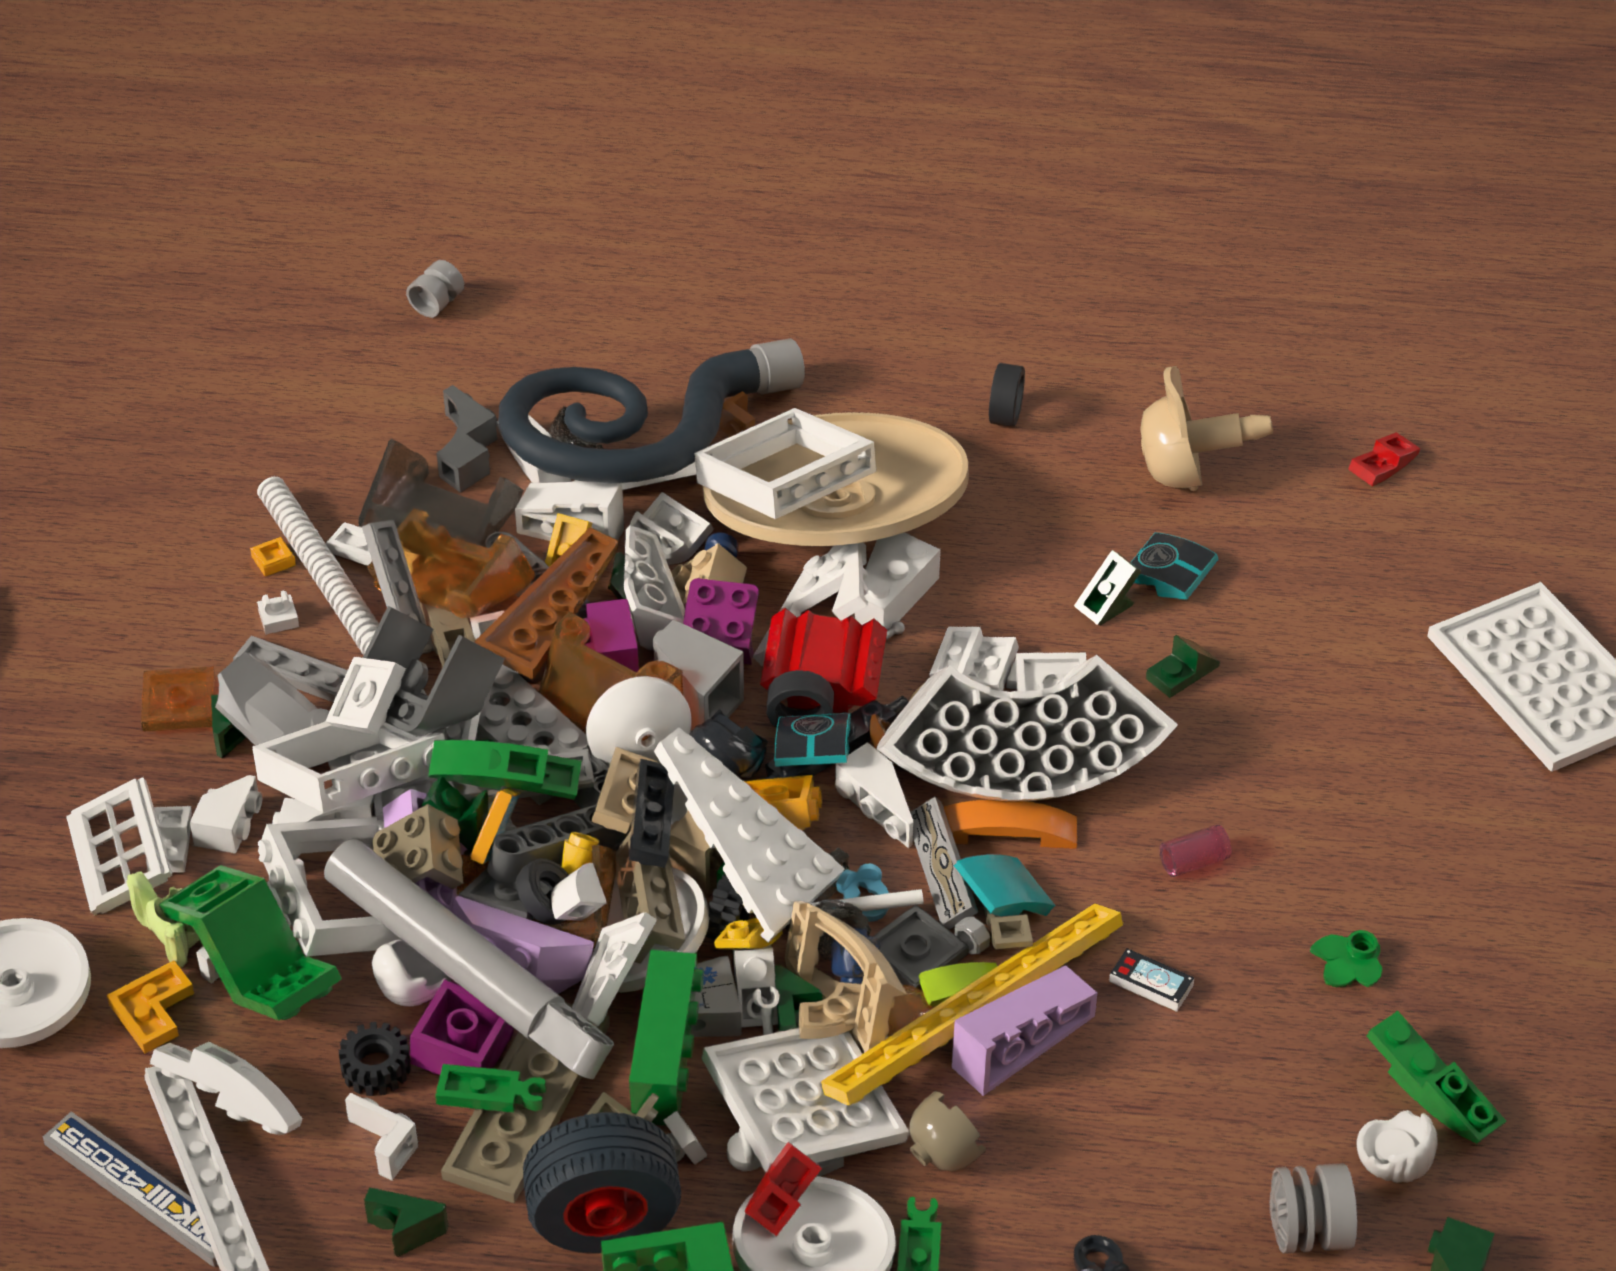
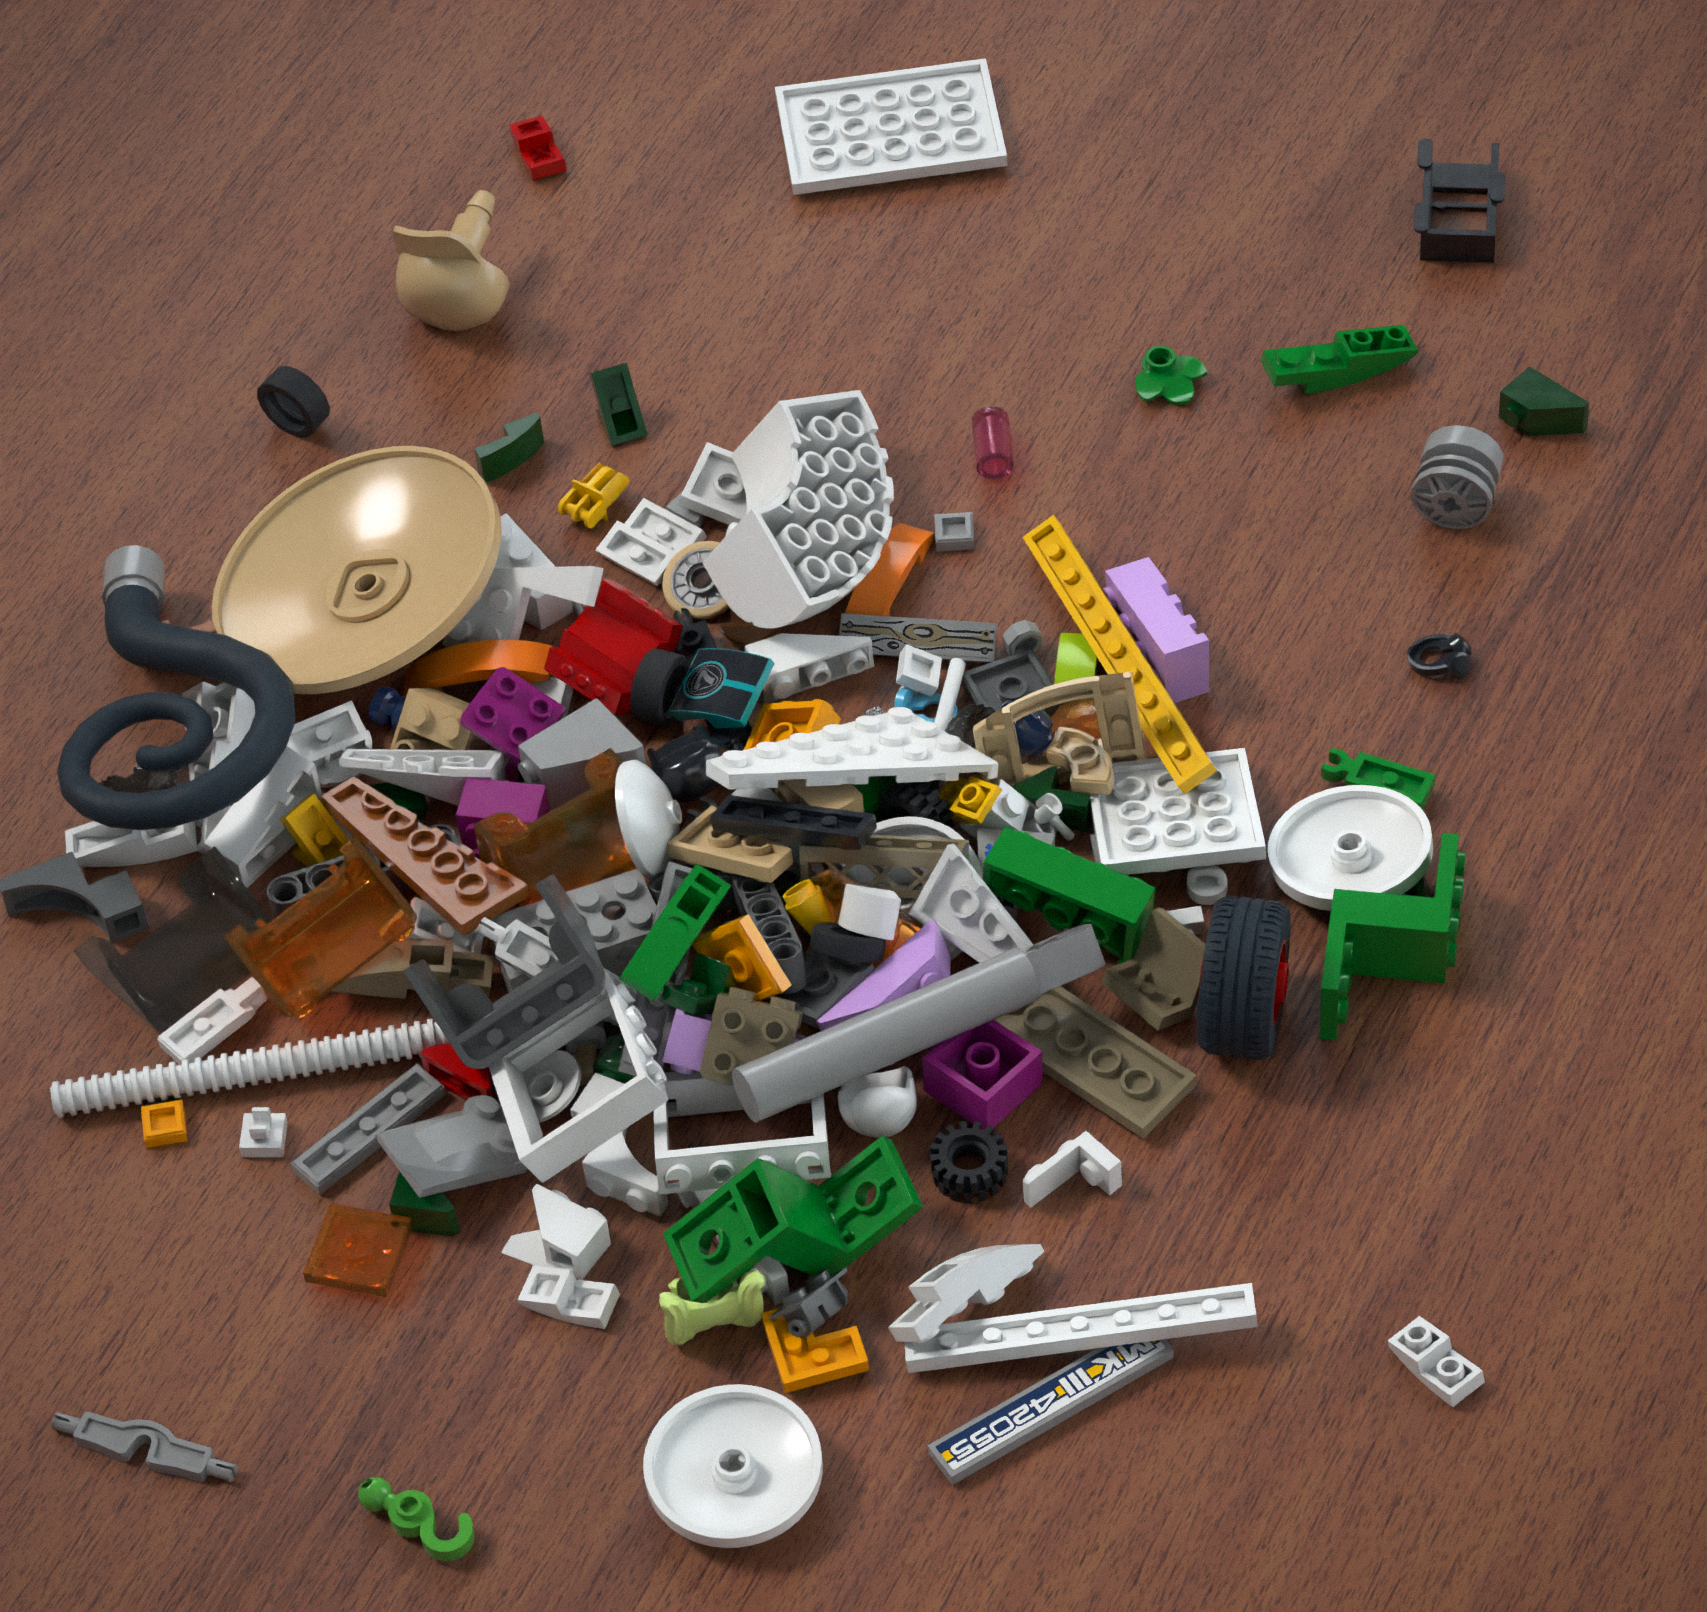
camera: 65 degrees left, 5 degrees up
(86, 844) = (564, 1379): white piece -> none
(203, 993) = (811, 1306): none -> dark grey hinge
(366, 695) = (515, 1027): white plate -> none
(393, 571) = (330, 984): light grey tile -> none
(412, 1218) = (1189, 1168): dark green slope -> none
(488, 1089) = (1066, 1062): green plate -> none
(776, 583) = (478, 662): none -> orange slope
(781, 1187) = (1299, 859): red slope -> none
(845, 461) = (305, 556): white window -> none
(897, 869) = (918, 670): none -> white tile
(943, 1135) = (1267, 717): dark tan cylinder -> none
(1002, 605) = (593, 495): none -> yellow arm
(1004, 885) = (977, 593): teal slope -> none
(1008, 930) = (1037, 604): dark tan slope -> none
(1035, 543) = (505, 454): none -> dark green slope
(1084, 857) = (954, 531): none -> light grey tile
(1151, 979) = (1129, 525): tile -> none
(1173, 565) = (599, 345): black slope -> none
(1182, 667) = (744, 387): dark green slope -> none
(1398, 1147) = (1407, 400): white piece -> none

